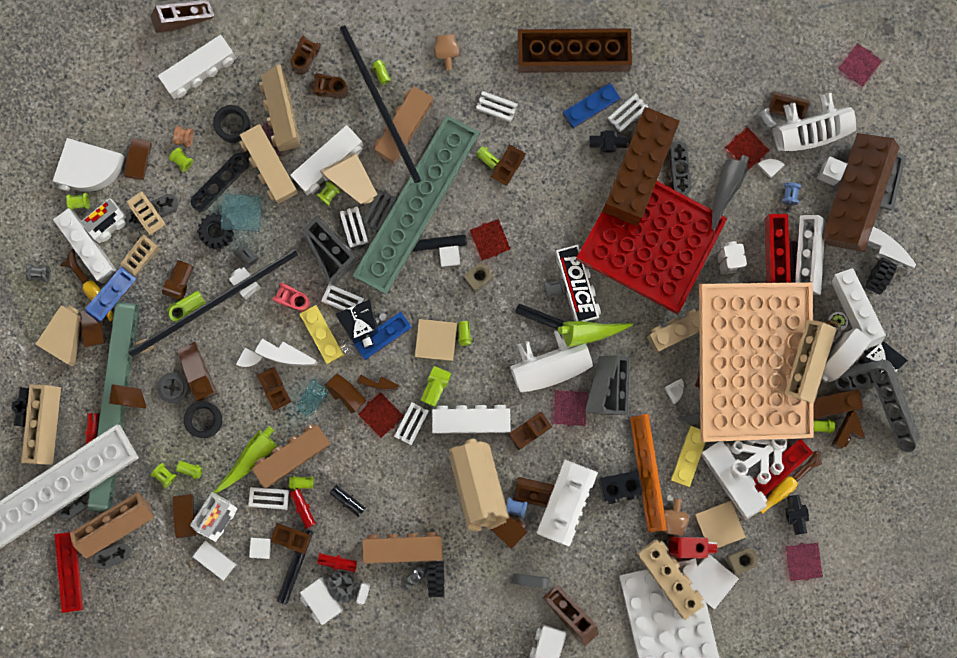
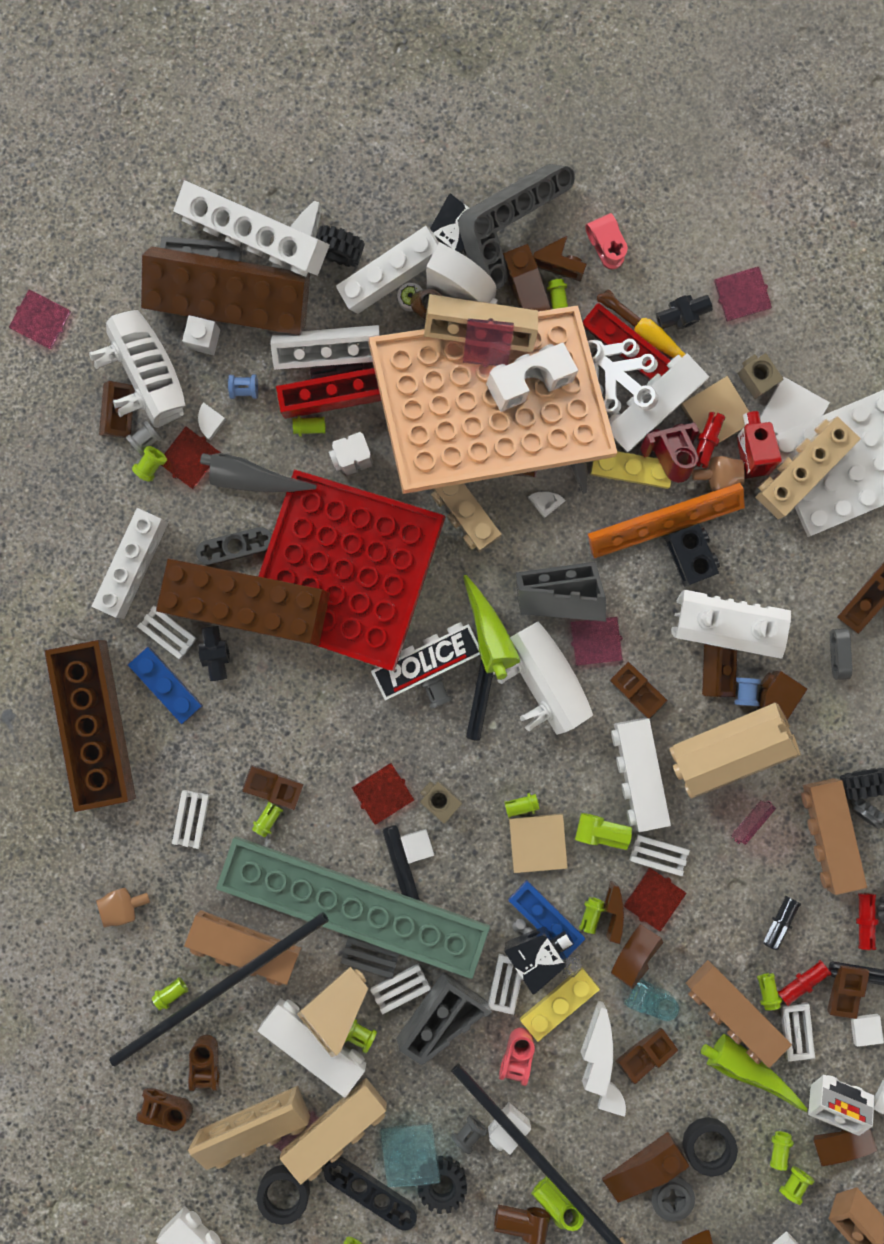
camera: 100 degrees left, 5 degrees up
(379, 368) = (591, 915): none -> lime pin
(424, 493) = (753, 822): none -> clear pink piece
(679, 95) = (130, 564): none -> white brick
(699, 485) = (674, 450): none -> dark red pin
(701, 513) = (709, 438): none -> red pin
(747, 120) = (149, 464): none -> lime bush
(756, 234) = (309, 425): none -> lime pin
(773, 405) = (550, 365): none -> white arch
(796, 362) = (487, 342): none -> clear pink piece
(859, 468) = (606, 237): none -> coral piece
(881, 252) = (194, 201): none -> white brick

